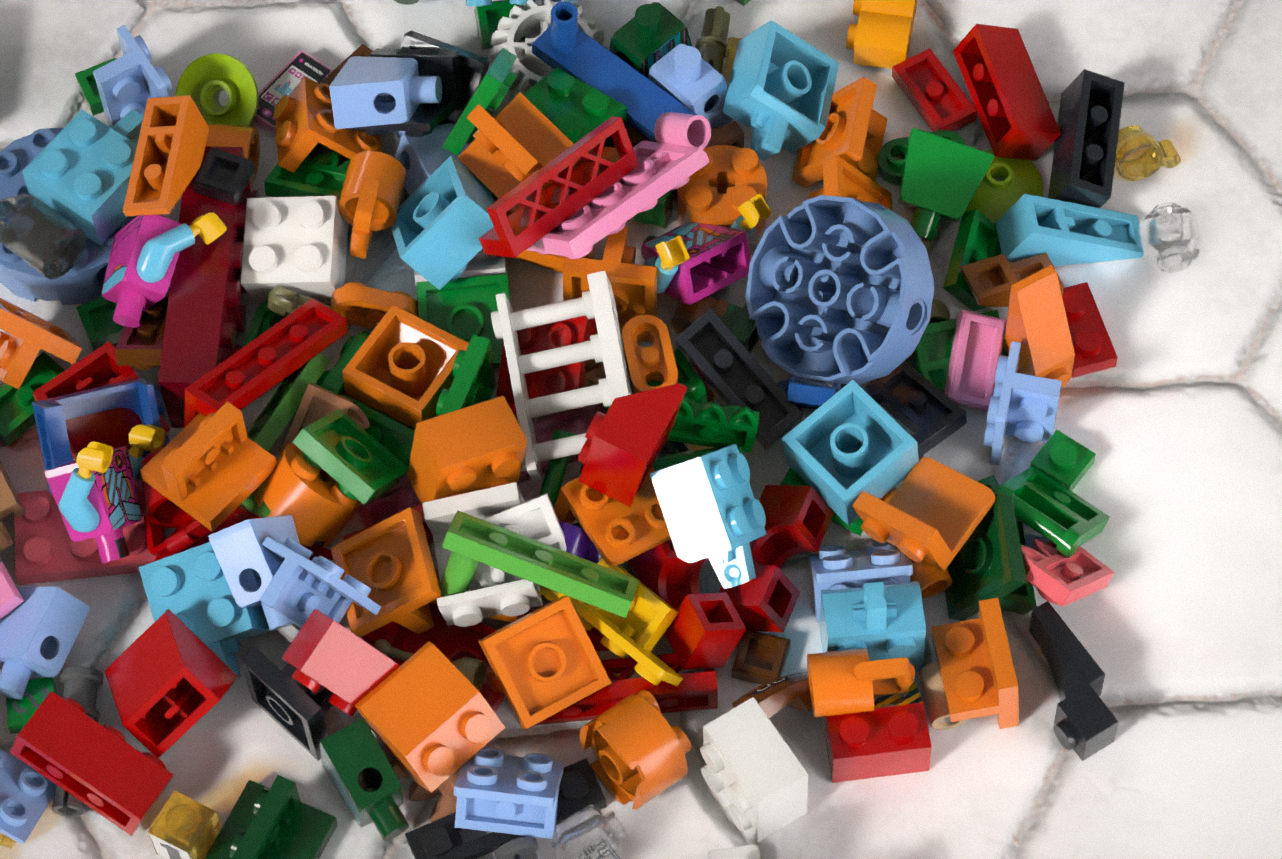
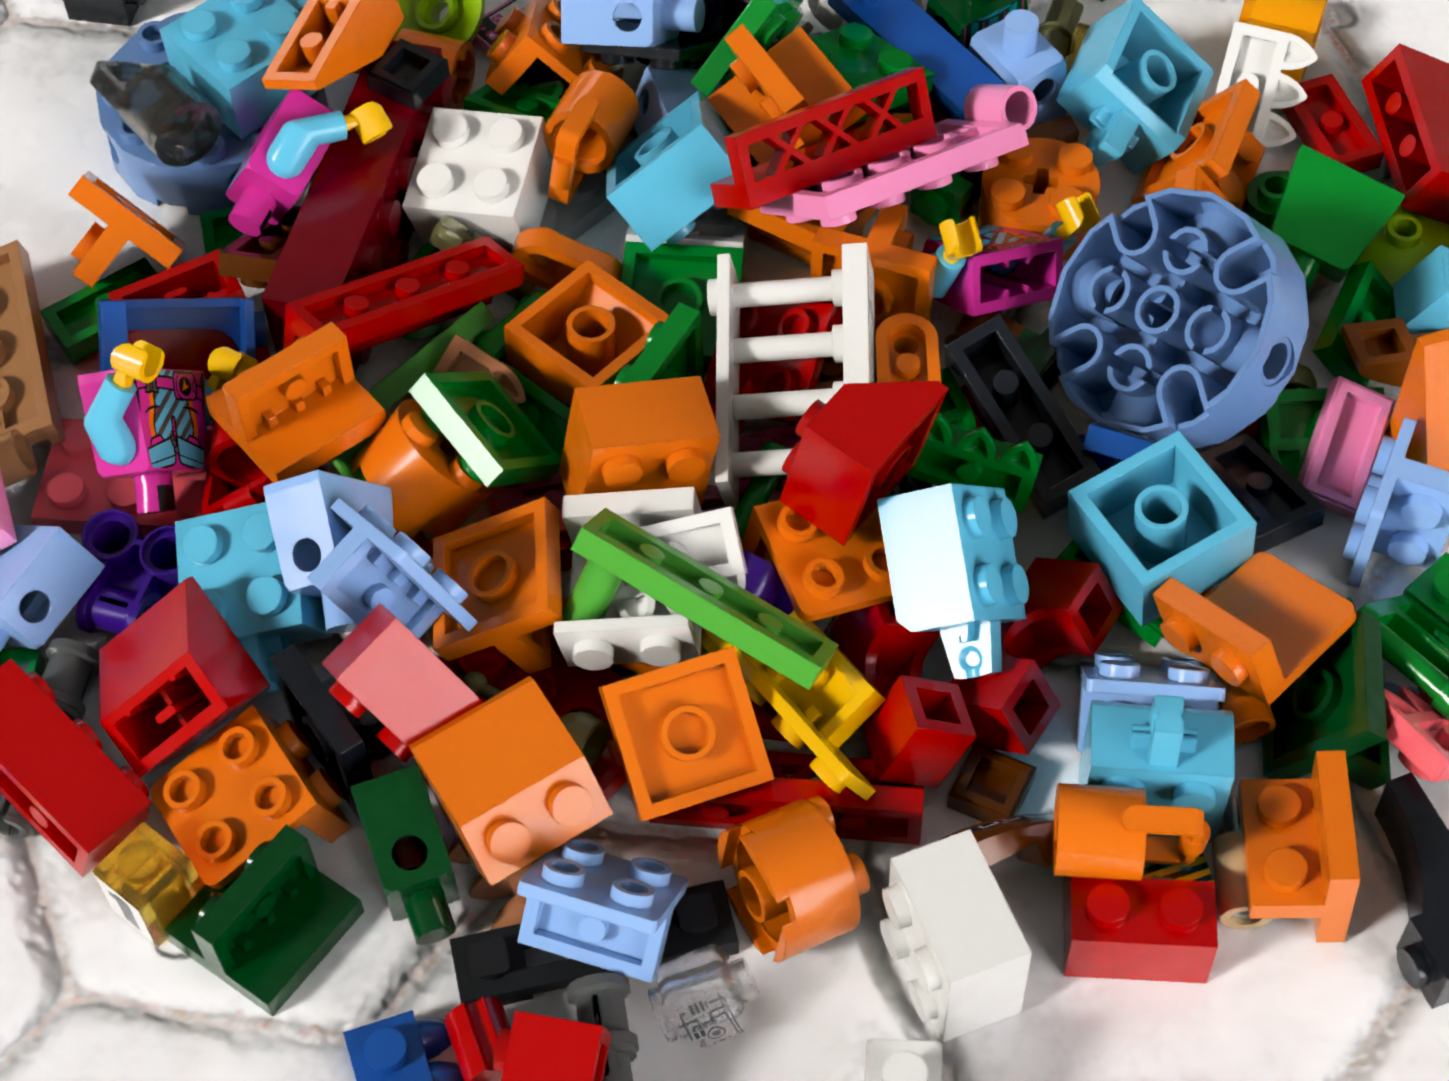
camera: 10 degrees right, 5 degrees down
(110, 616) = (131, 577): none -> dark purple piece
(236, 758) = (243, 793): none -> orange bracket
(869, 56) = (1260, 57): none -> white plate

